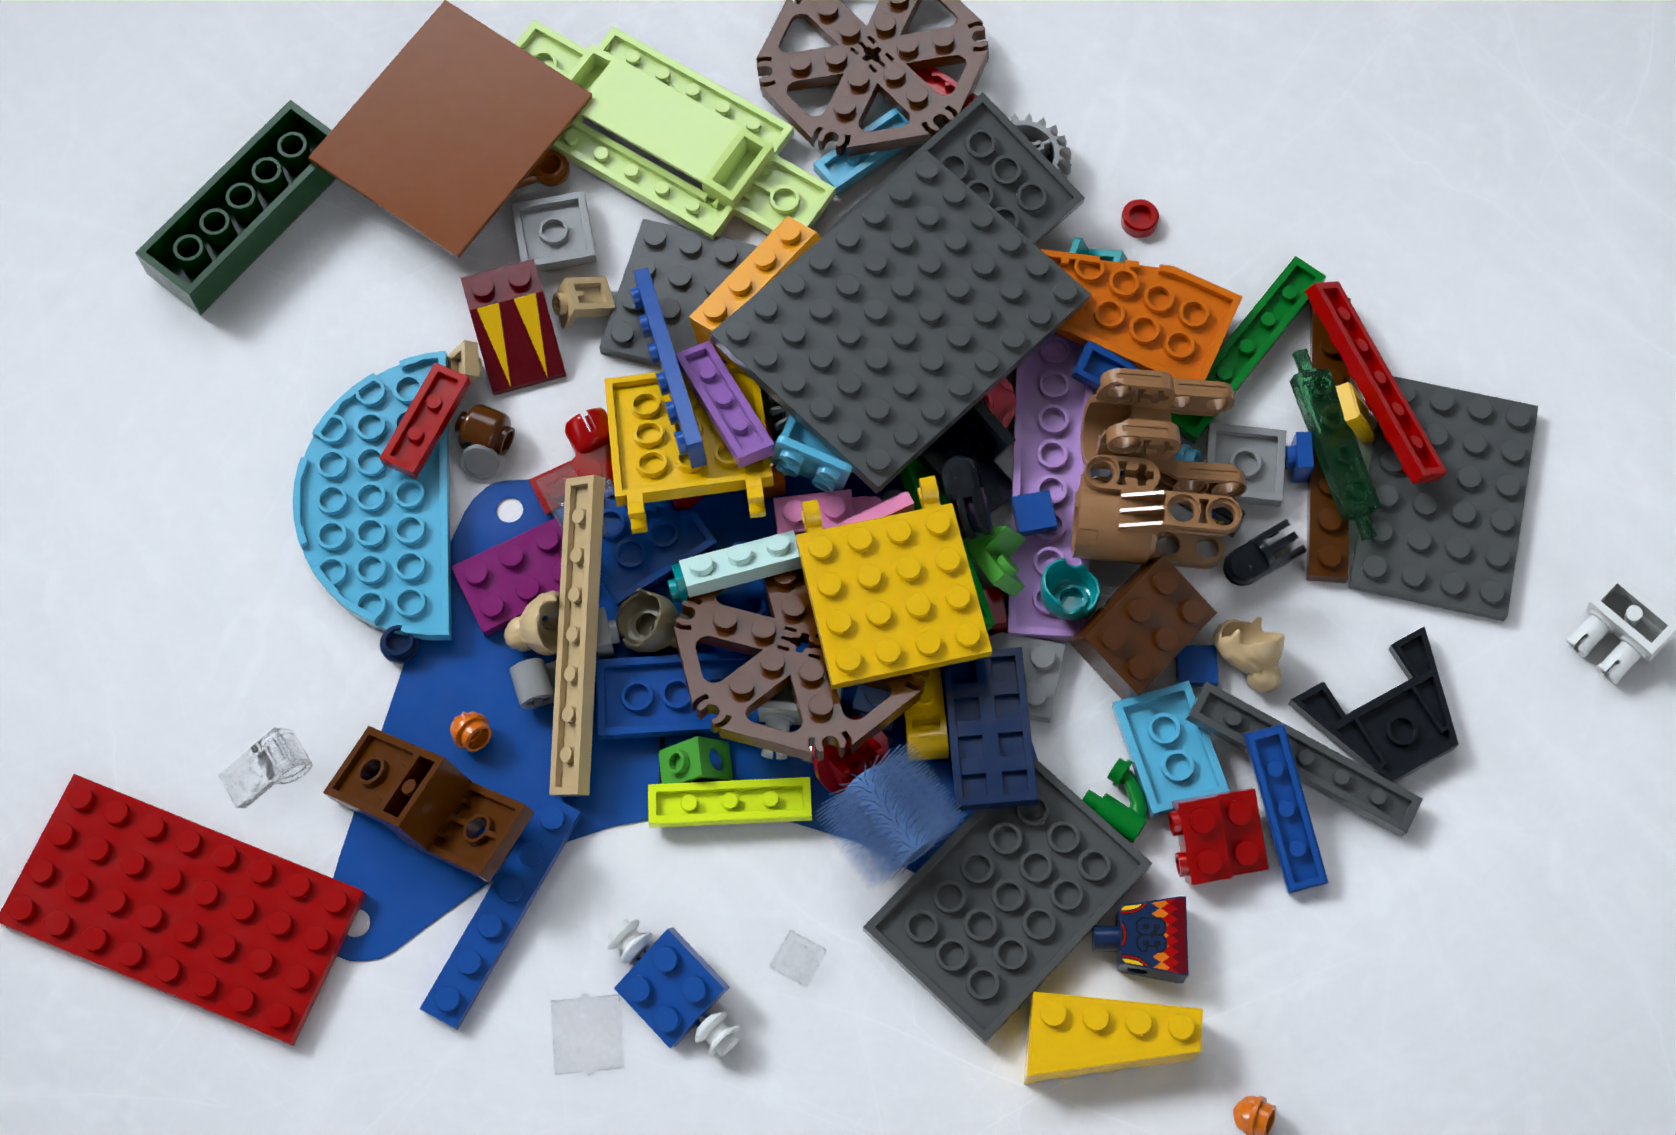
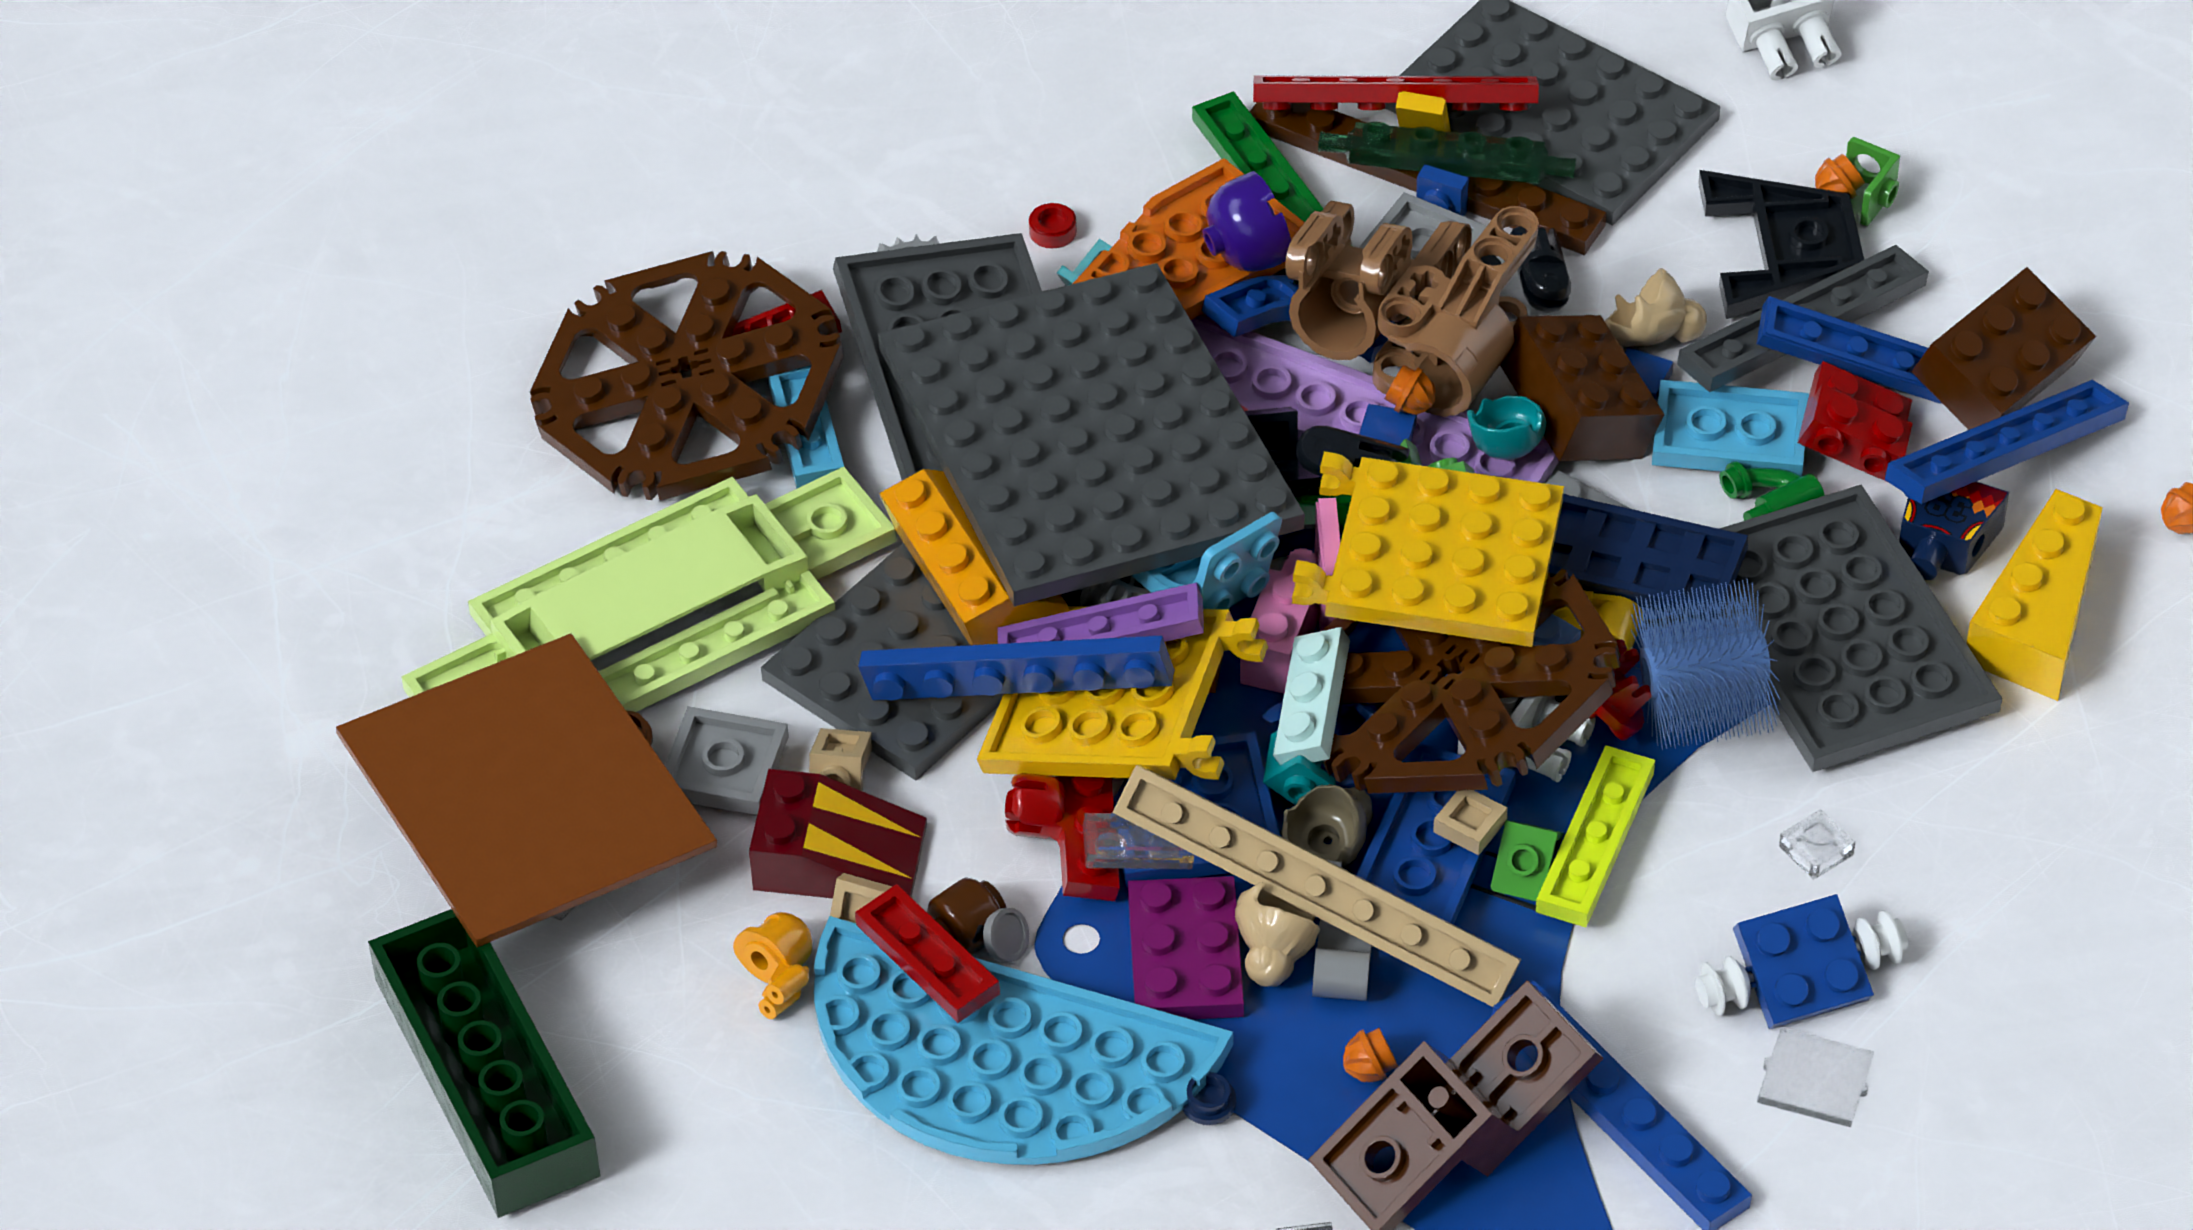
camera: 65 degrees left, 20 degrees down
(407, 334) = (777, 957): none -> light orange piece
(679, 715) = (1470, 820): none -> tan plate
(1062, 512) = (1411, 391): none -> orange plate
(1152, 334) = (1245, 225): none -> dark purple cylinder
(1239, 955) = (2006, 441): none -> blue plate
(1337, 921) = (2003, 352): none -> reddish brown brick
(1474, 731) = (1839, 176): none -> orange plate
(1484, 768) = (1882, 185): none -> bright green bracket

